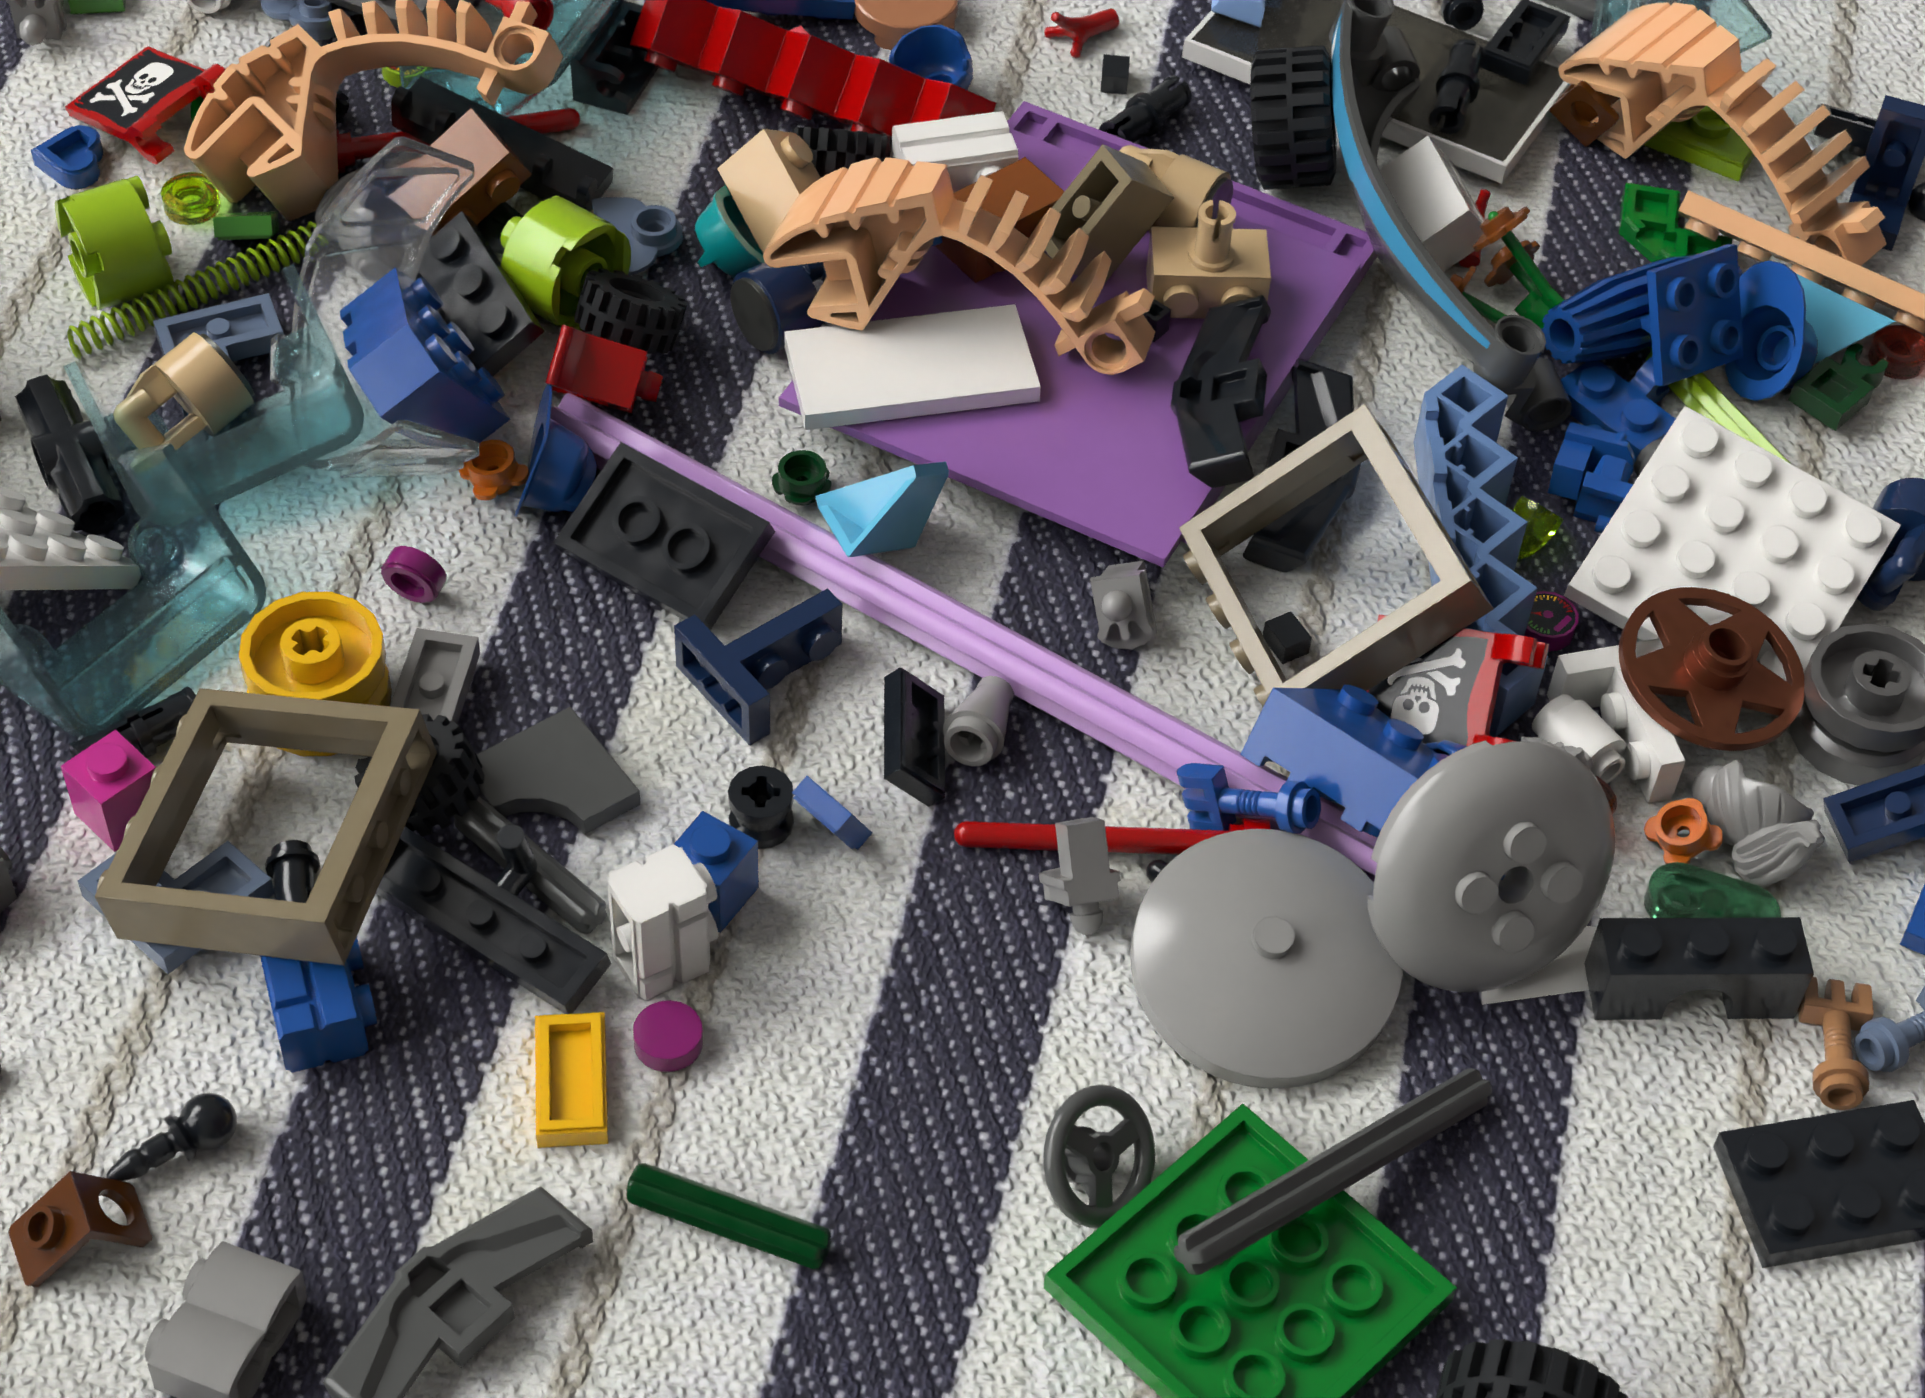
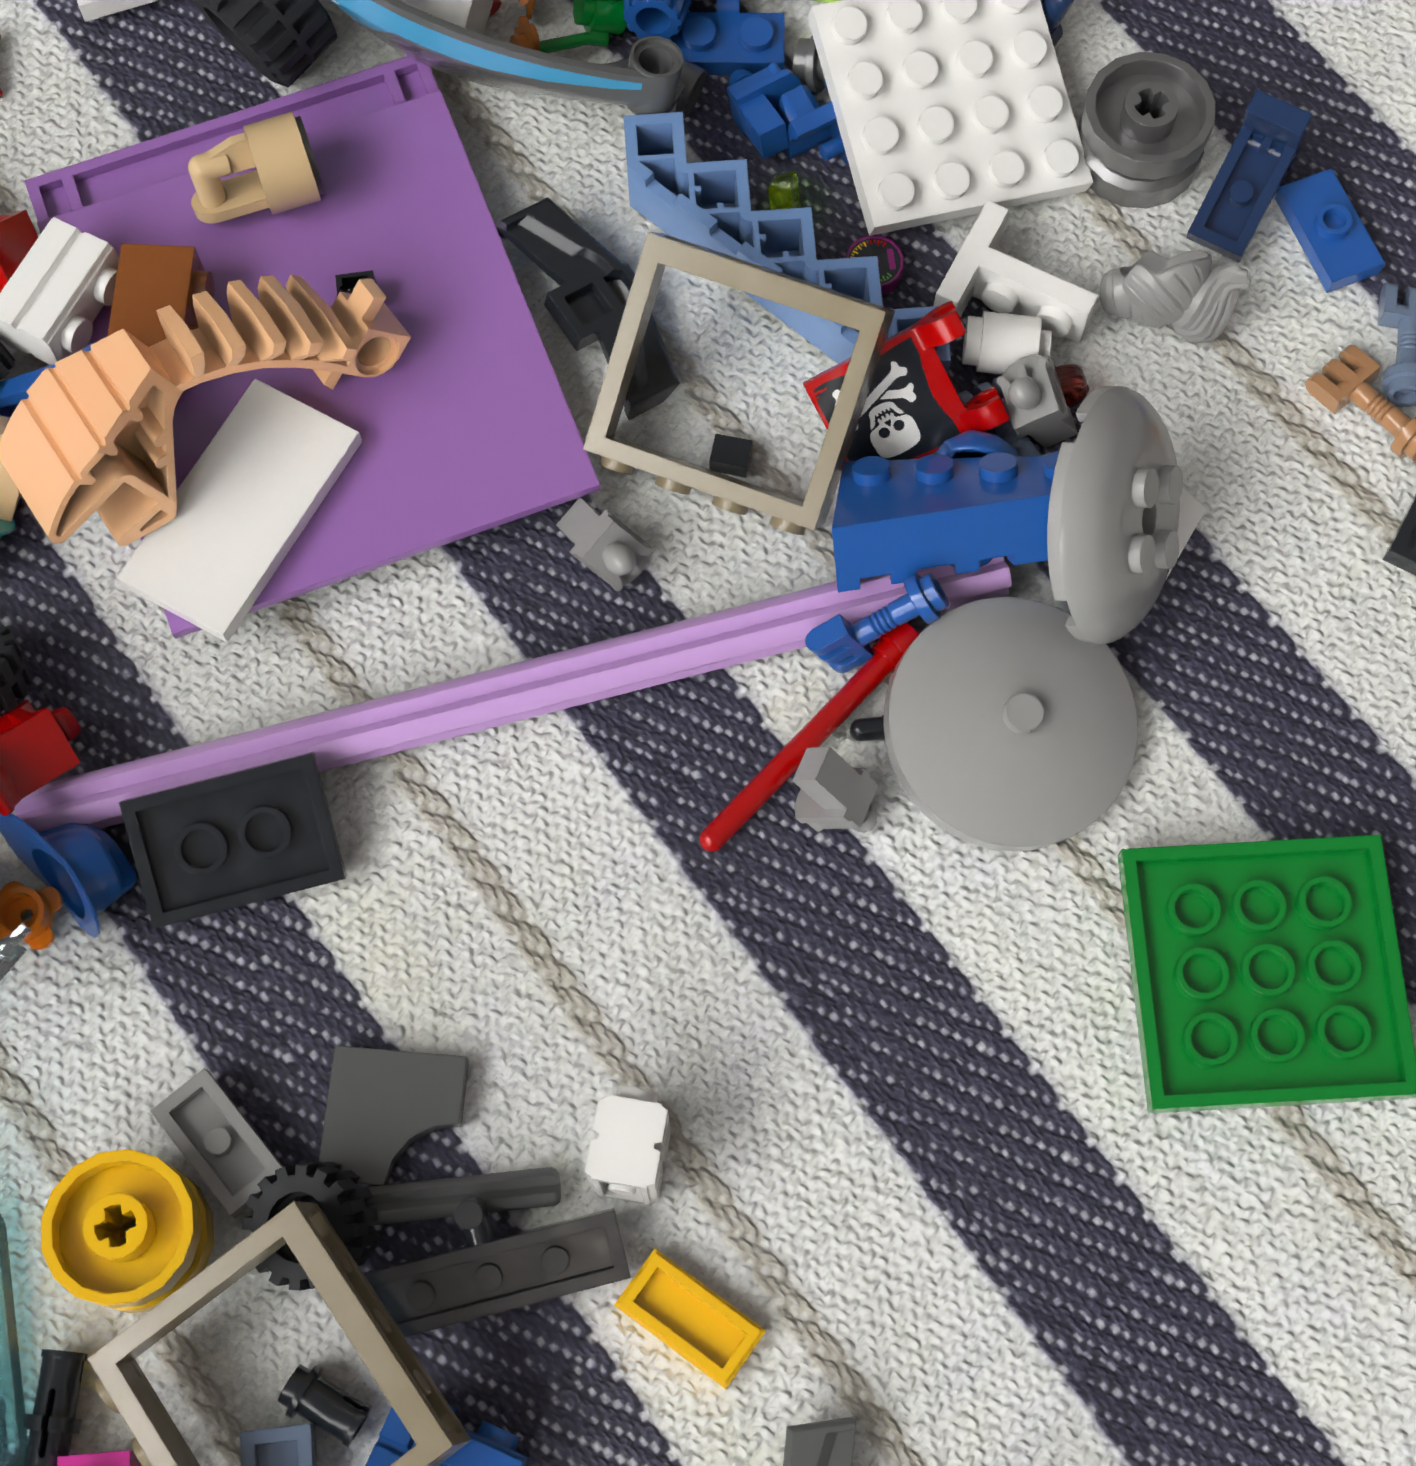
camera: 45 degrees left, 20 degrees up
(413, 574) = (86, 1069): magenta tile -> none
(668, 1036) = (712, 1213): magenta tile -> none
(728, 1215) = (910, 1295): dark green axle -> none
(730, 860) = (597, 1062): blue brick -> none
(741, 672) = (423, 864): dark blue bracket -> none
(772, 792) = (570, 986): black wheel -> none
(774, 301) = (69, 570): dark blue piece -> none
(801, 477) = (258, 664): dark green plate -> none
(831, 813) = (618, 928): blue tile -> none
(884, 510) = (356, 653): medium azure slope -> none
(914, 737) = (597, 806): black plate -> none
(979, 724) = (624, 745): light grey cone -> none
(1092, 1156) = (1079, 993): dark grey piece -> none
(1113, 203) = (244, 230): dark tan brick -> none
(1115, 74) = (52, 85): black piece -> none
(1147, 112) = (122, 98): black pin -> none
(1207, 263) = (361, 209): tan brick -> none
(1221, 391) = (489, 307): black plate -> none
(1331, 1172) = (1237, 843): dark grey axle -> none
(1648, 962) = (1258, 442): black arch -> none
(1678, 816) = (1127, 330): orange plate -> none
(1704, 895) = (1206, 387): clear green plate -> none
(1711, 668) = (1038, 205): copper wheel -> none

